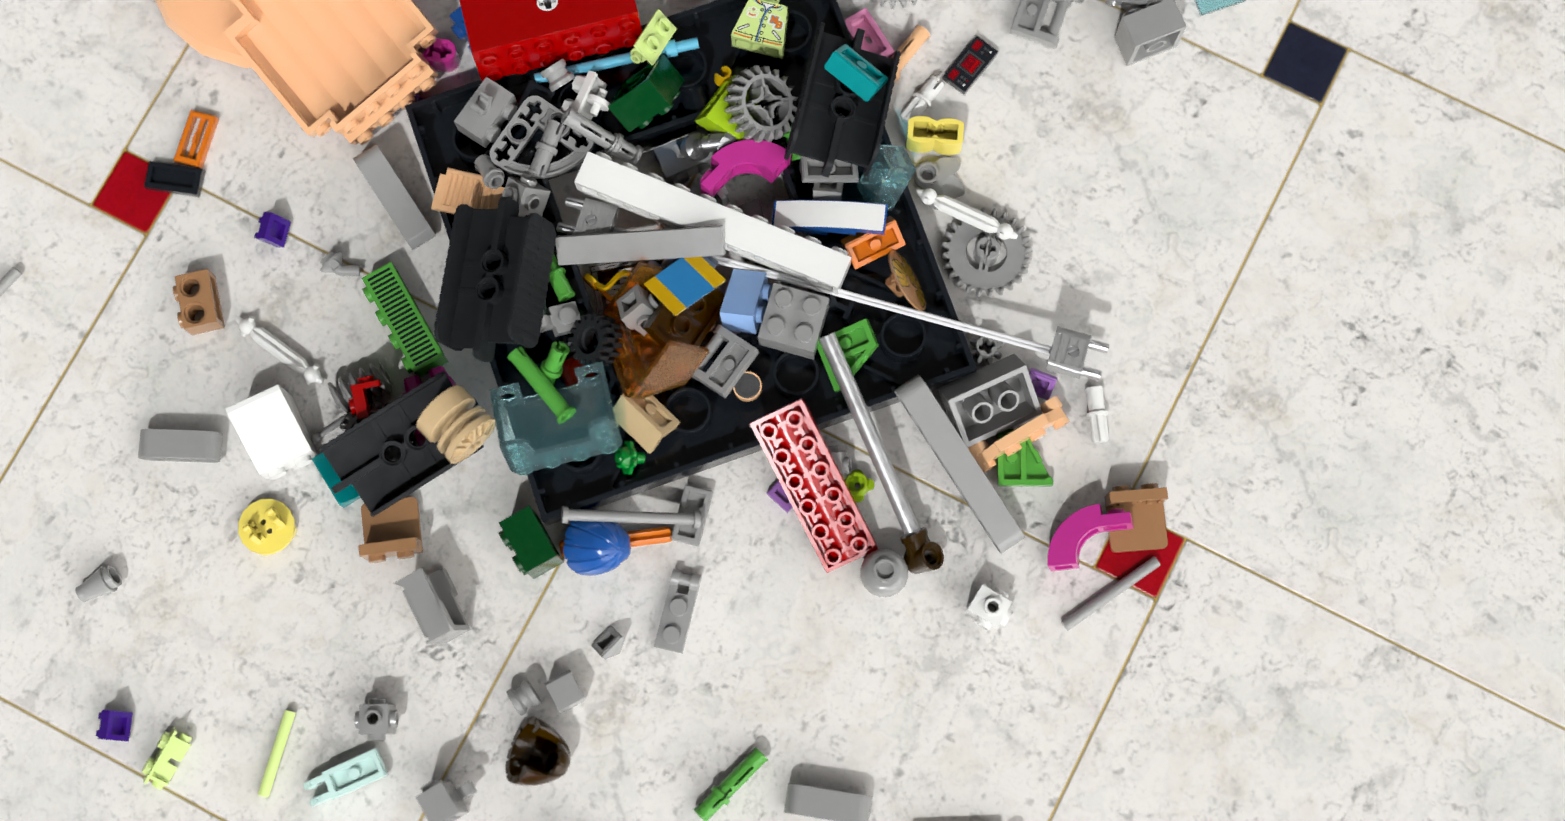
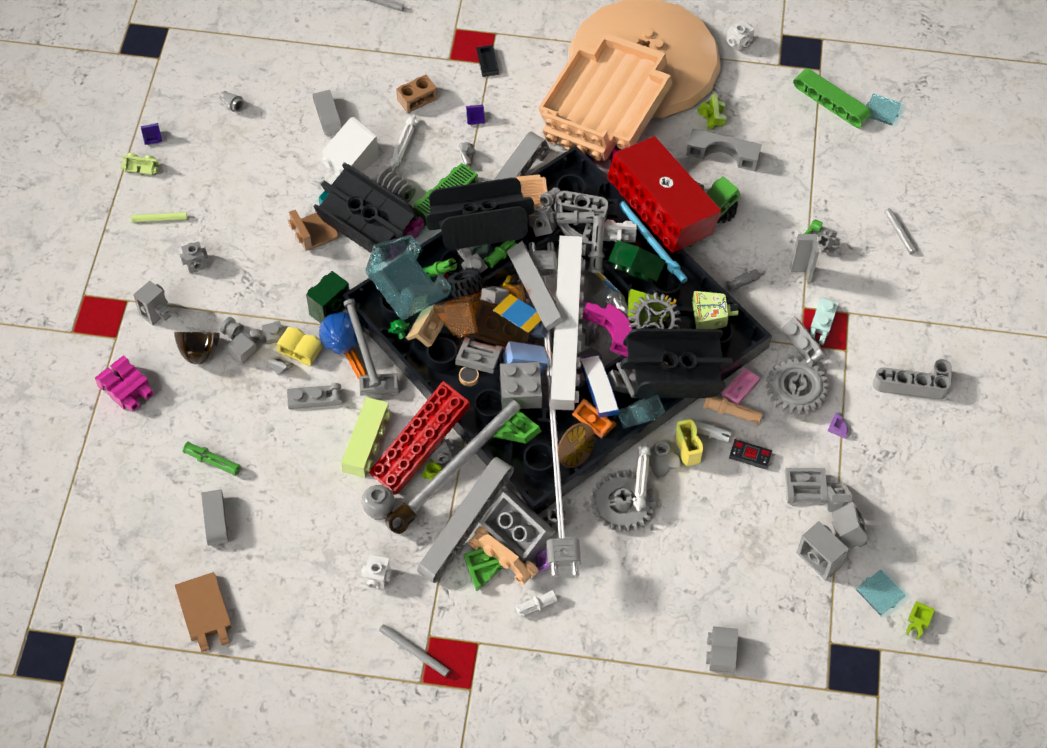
camera: 65 degrees right, 20 degrees down
(206, 141) = (520, 63): orange tile -> none
(256, 536) = (298, 164): light yellow plate -> none
(348, 776) = (155, 255): light aqua hinge -> none
(359, 402) = (387, 179): red bracket -> none
(434, 605) = (283, 266): light grey piece -> none
(456, 424) = (381, 220): tan wheel -> none
(486, 112) = (587, 181): light grey brick -> none
(541, 385) = (423, 268): bright green pin -> none
(548, 642) = (270, 332): none -> light grey plate
(557, 75) = (626, 209): light grey wheel -> none
(589, 607) = (299, 346): none -> light yellow brick
(653, 39) = (673, 251): yellowish green hinge -> none
(773, 559) = (365, 437): none -> yellowish green brick
(855, 72) = (697, 360): teal slope -> none
(1077, 529) = (448, 611): dark pink arch -> none
(1147, 514) = (472, 648): medium nougat bracket -> none
(1237, 206) = (723, 649): none -> light grey brick

